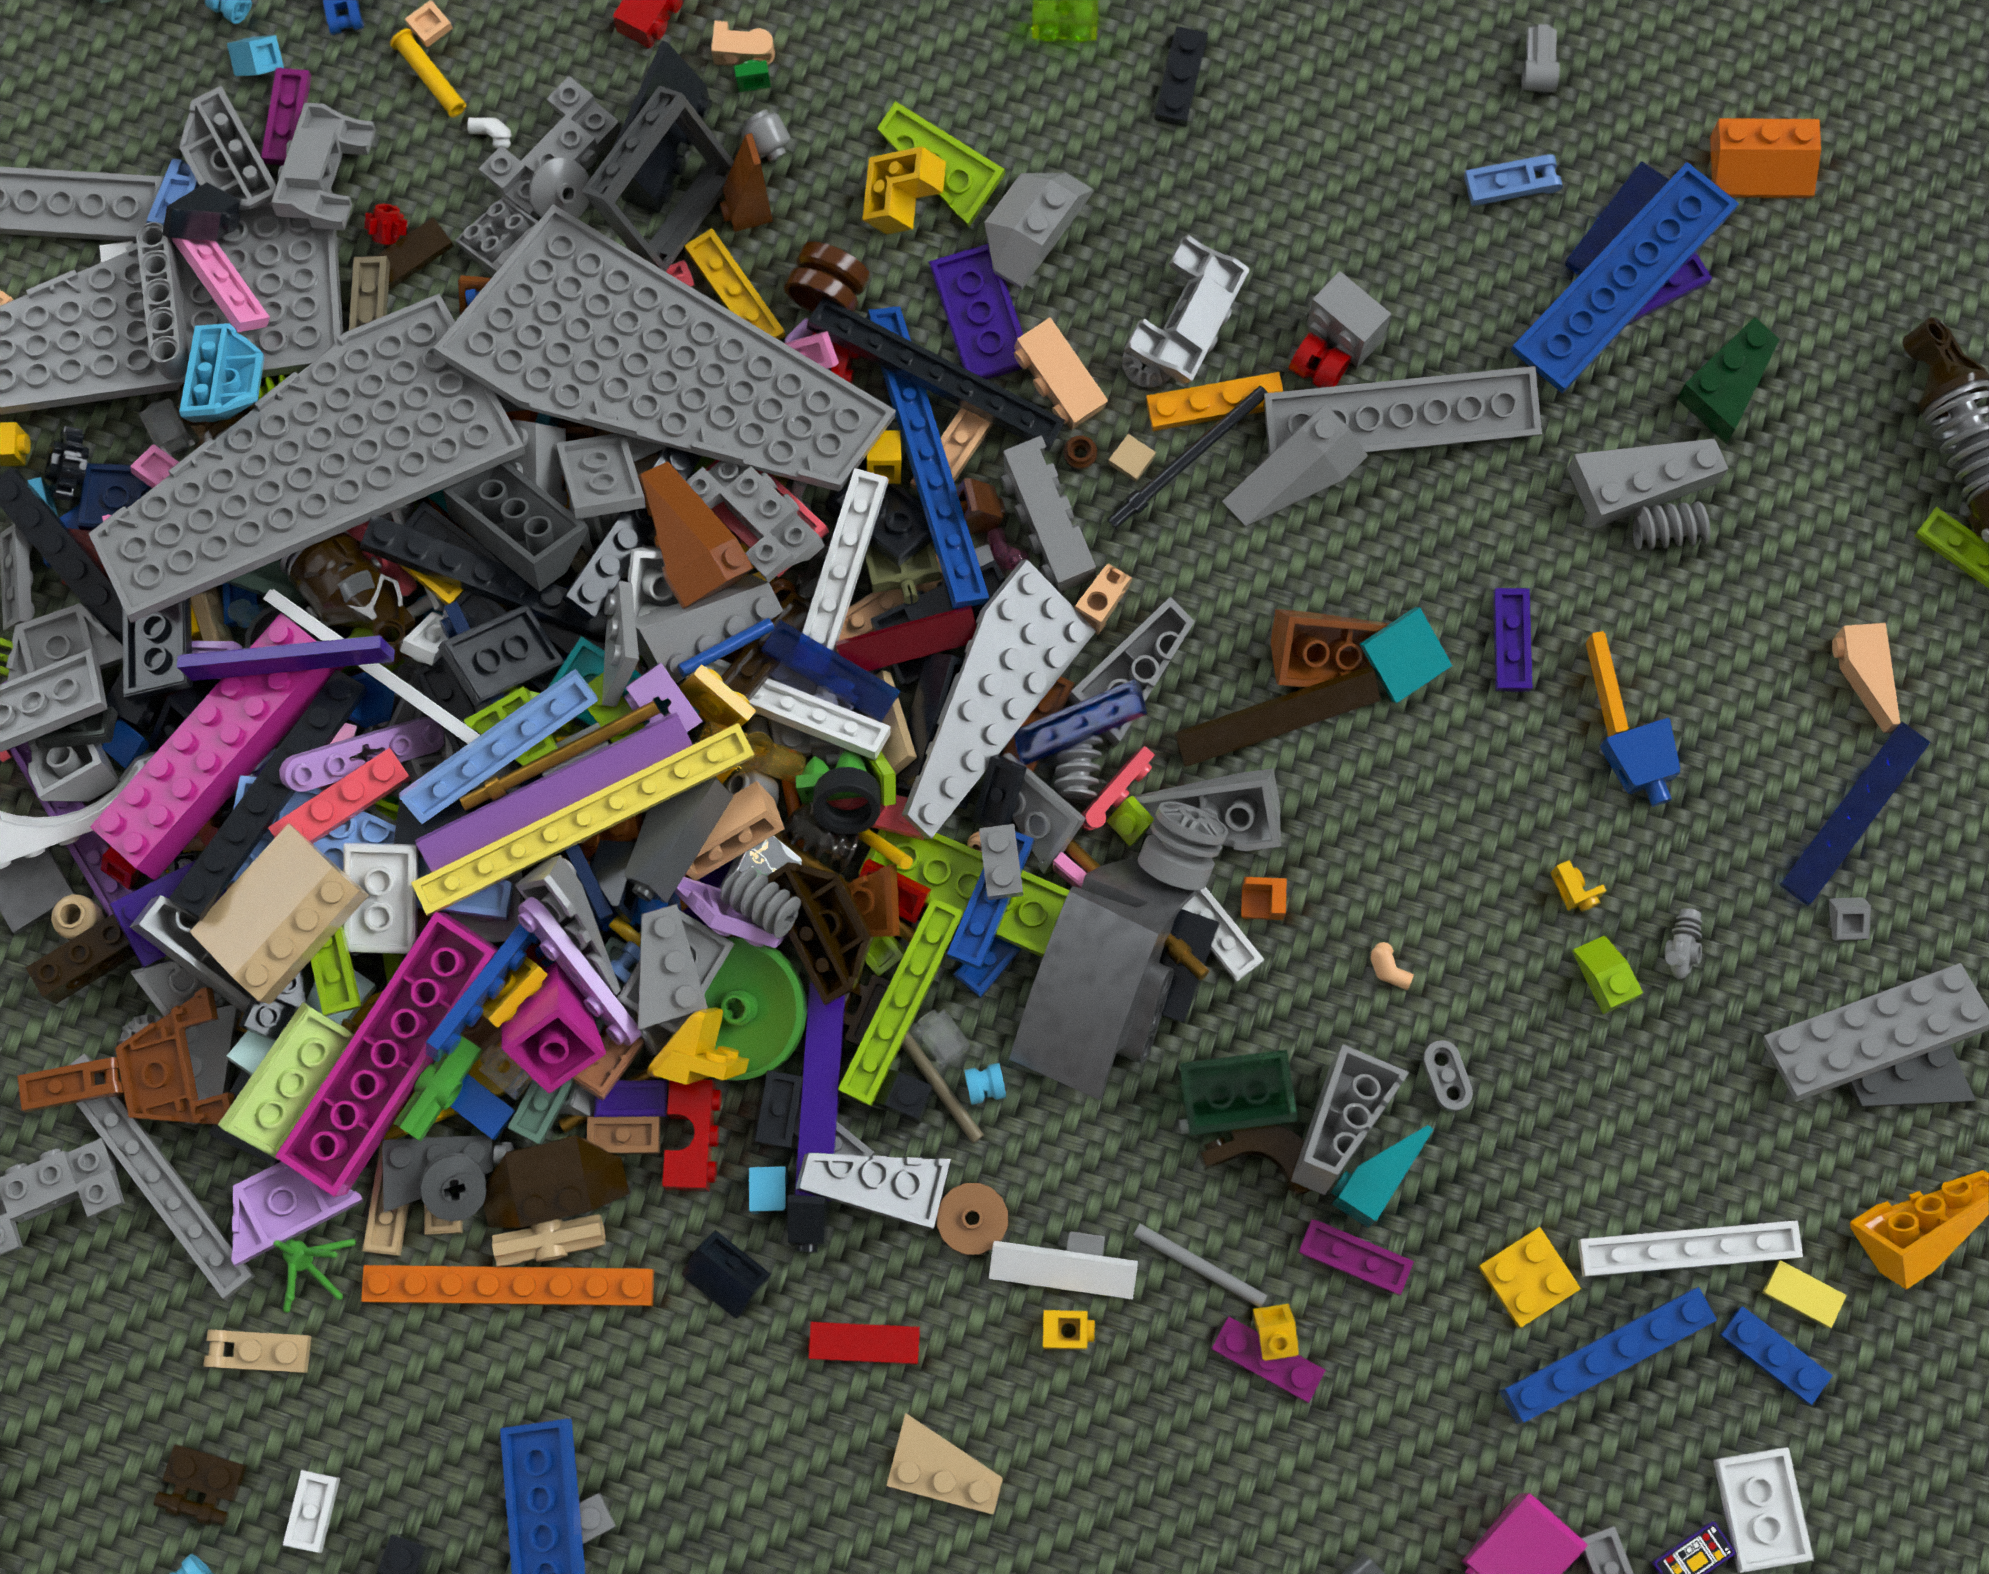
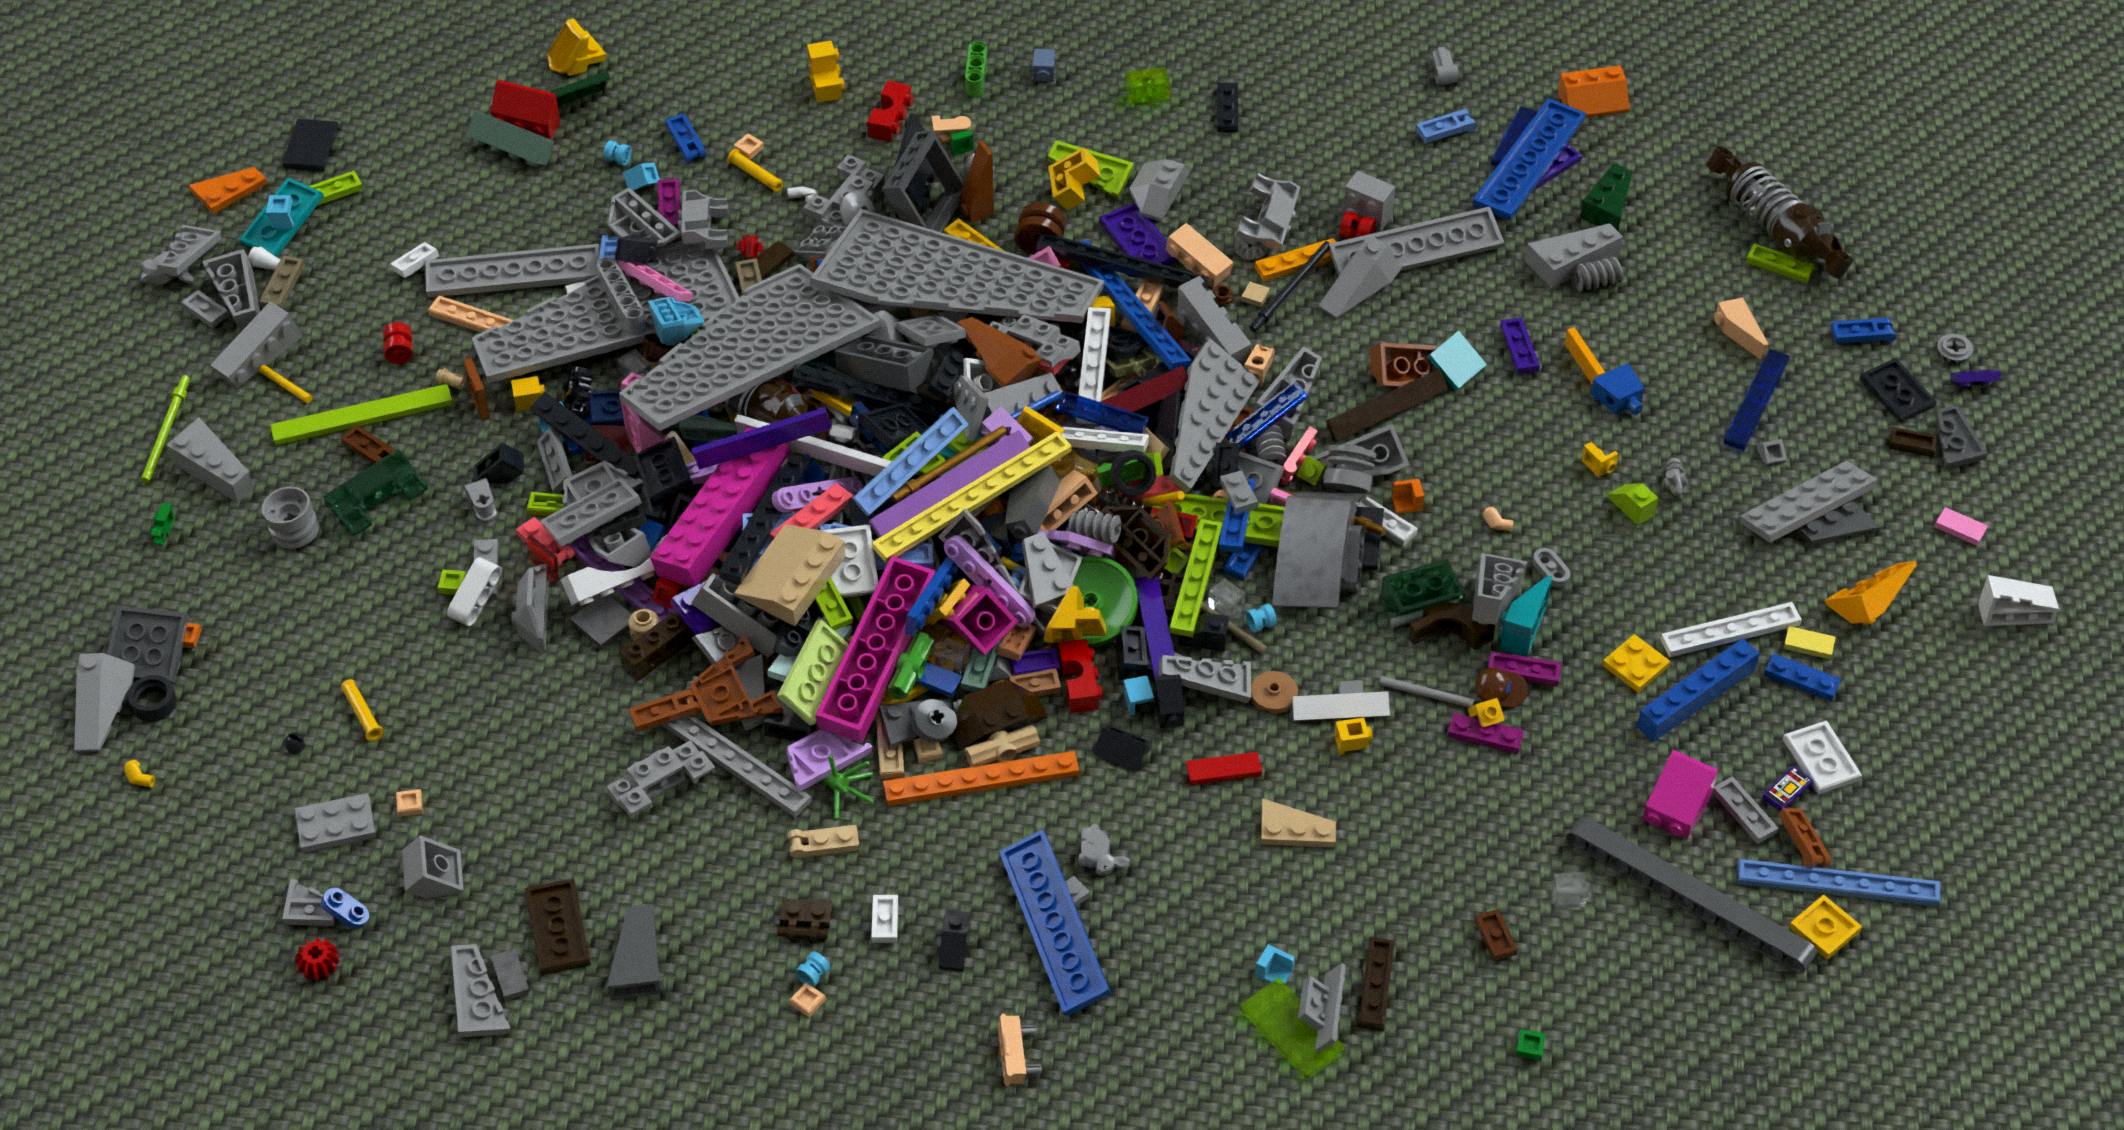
camera: 15 degrees left, 25 degrees down
(640, 1460) = (1096, 852): none -> light grey animal
(1311, 1285) = (1505, 685): none -> reddish brown cap

